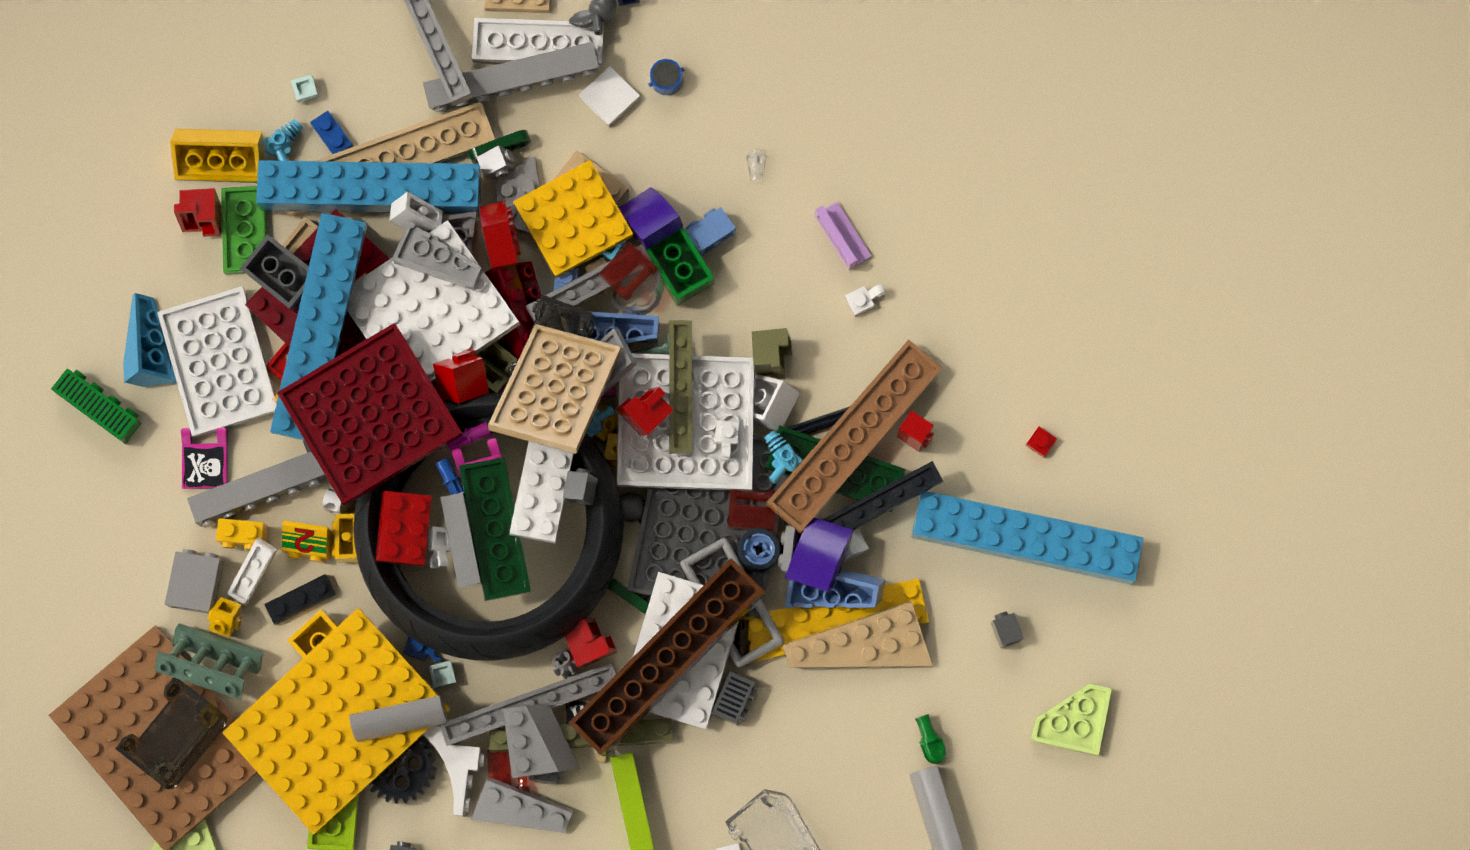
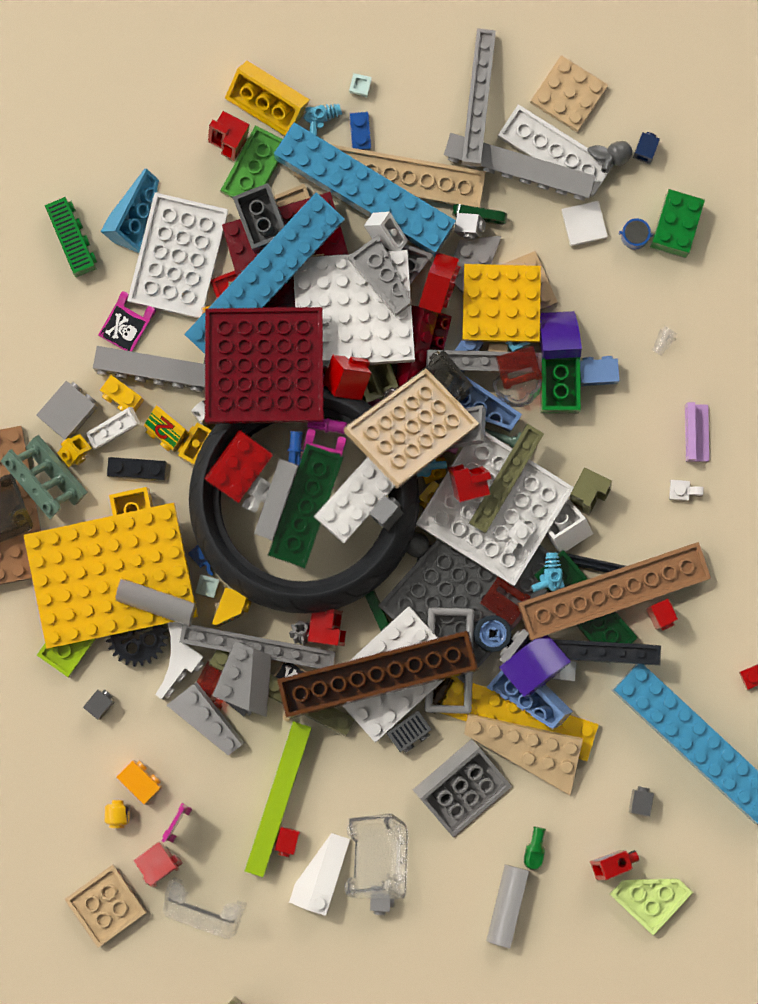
camera: 30 degrees right, 5 degrees up
(479, 680) = (230, 607): none -> yellow slope
(701, 43) = (677, 223): none -> green brick
(820, 723) = (462, 788): none -> light grey slope
(1017, 707) = (608, 867): none -> red torso

